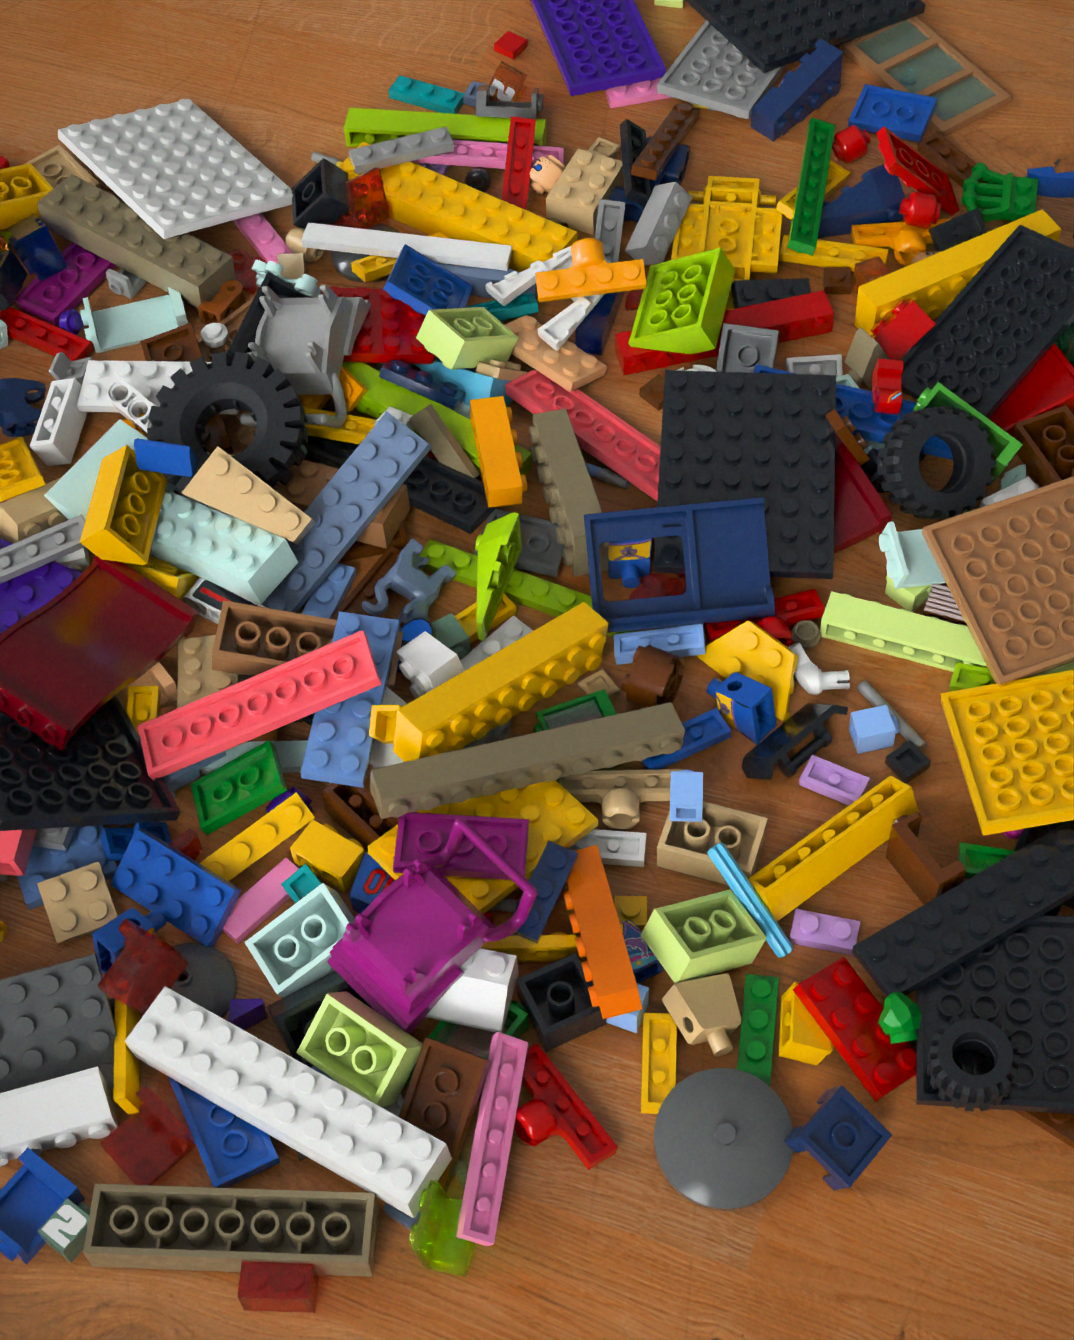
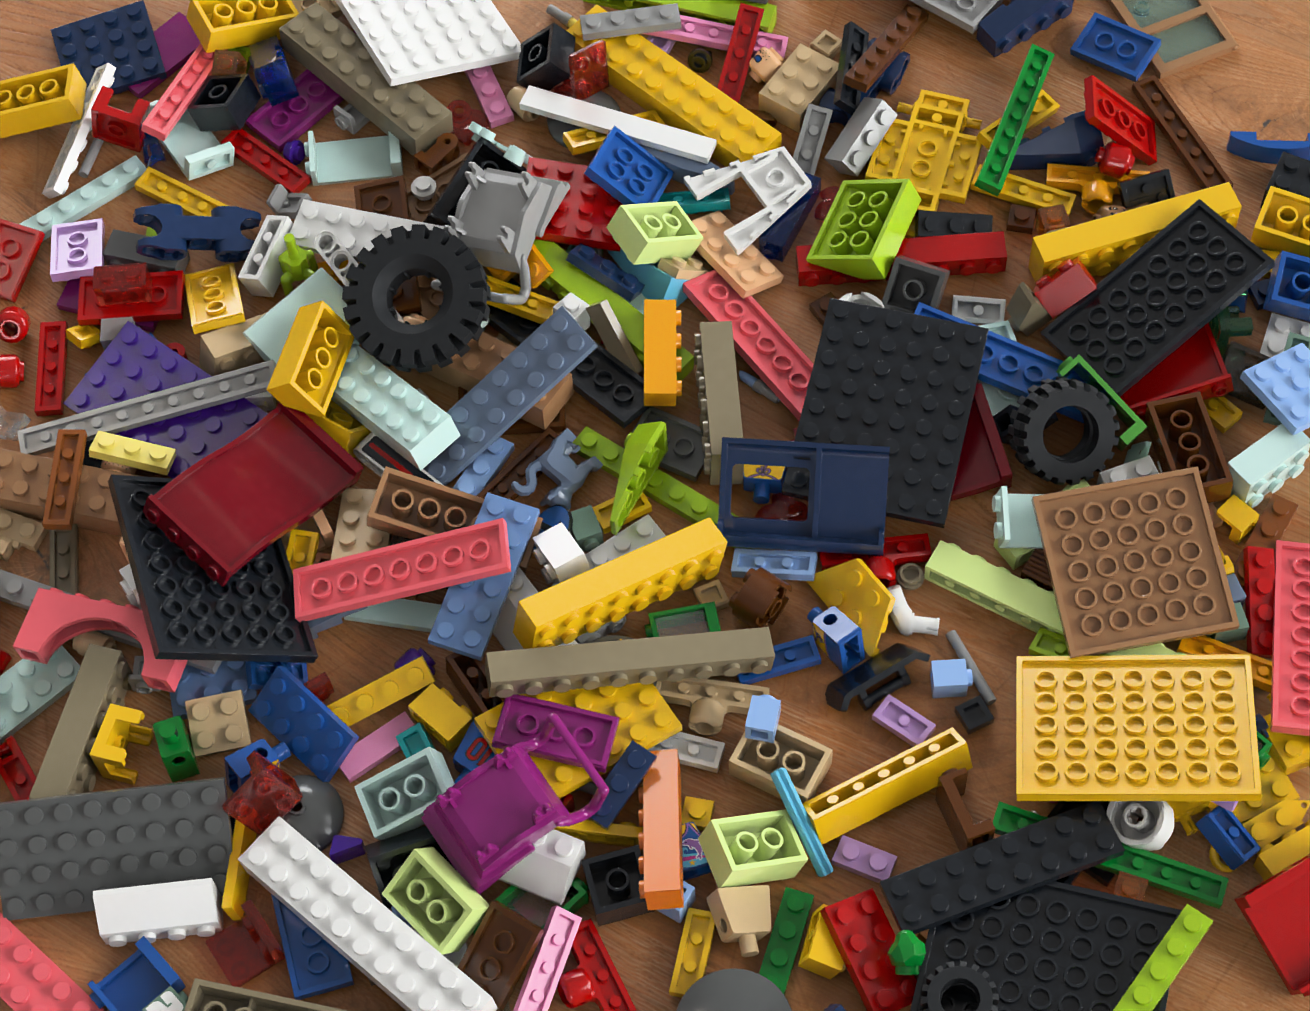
camera: 10 degrees right, 5 degrees up
(32, 928) = (175, 742): none -> green torso
(89, 421) = (295, 264): none -> lime plant
(165, 457) = (355, 319): blue slope -> none
(238, 787) = (373, 640): green plate -> none
(241, 494) = (422, 369): tan wedge -> none
(292, 264) = (507, 125): tan tile -> none
(383, 722) = (507, 604): yellow panel -> none
(590, 274) = (781, 185): light orange plate -> none
(844, 430) = (985, 389): reddish brown plate -> none
(850, 144) = (1066, 75): red head -> none
(887, 386) = (1037, 344): red leg -> none
(1016, 194) = (1213, 153): green plate -> none

